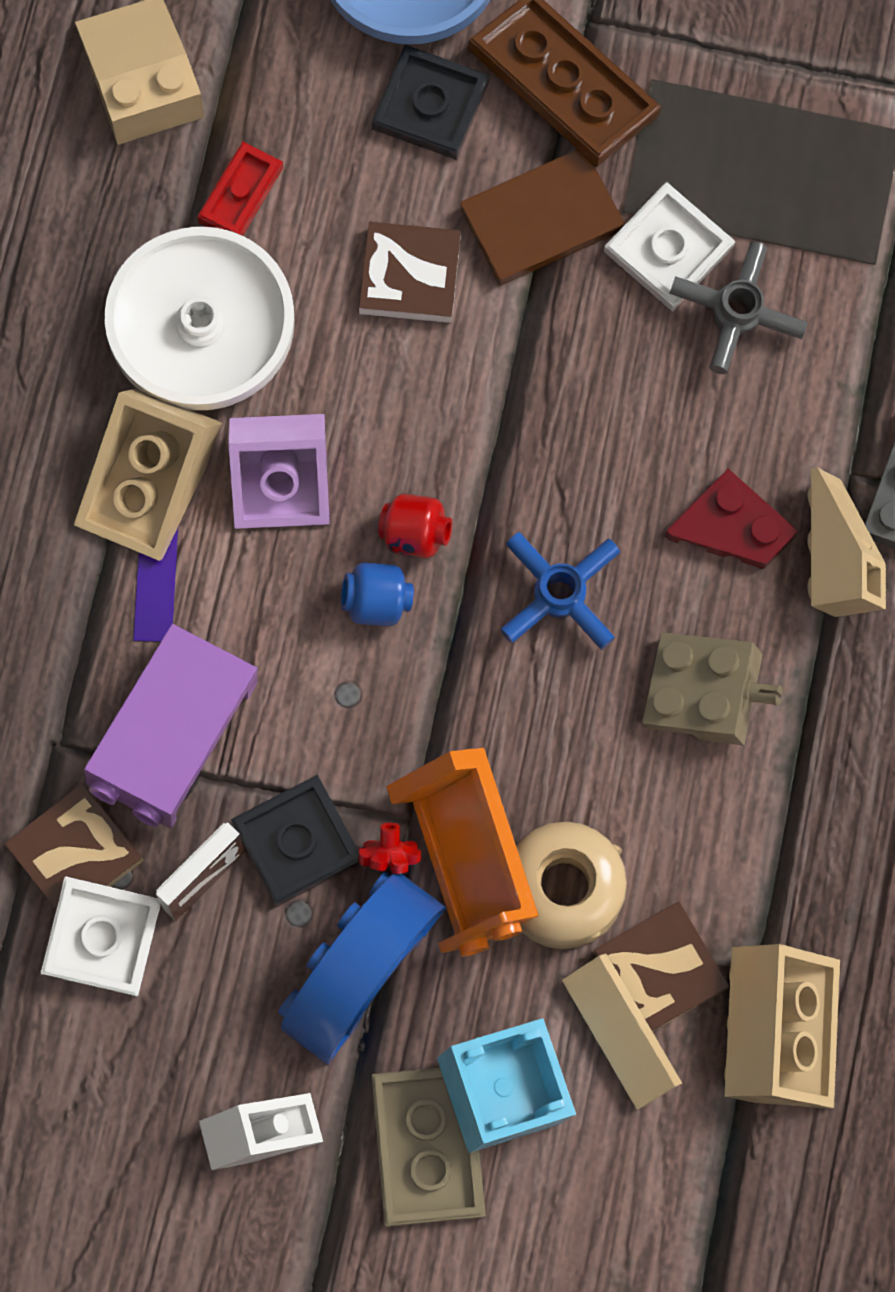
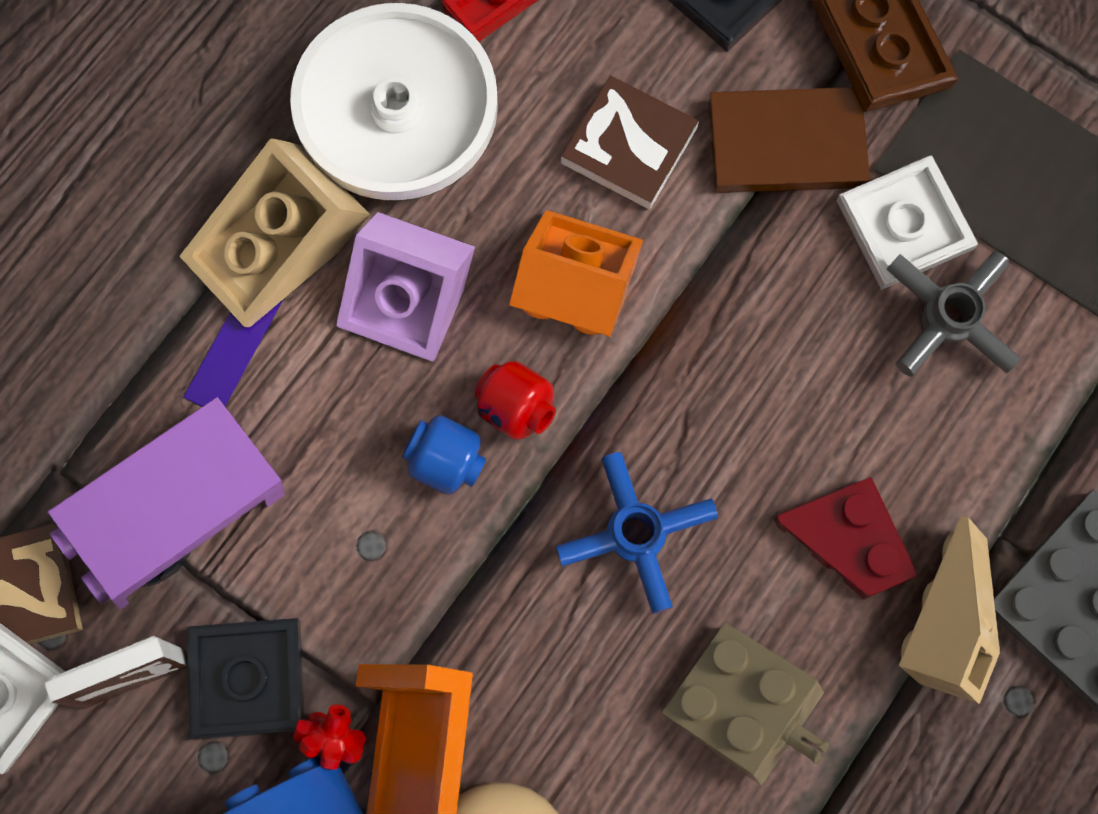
camera: 25 degrees right, 0 degrees up
(417, 401) = (575, 273): none -> orange slope

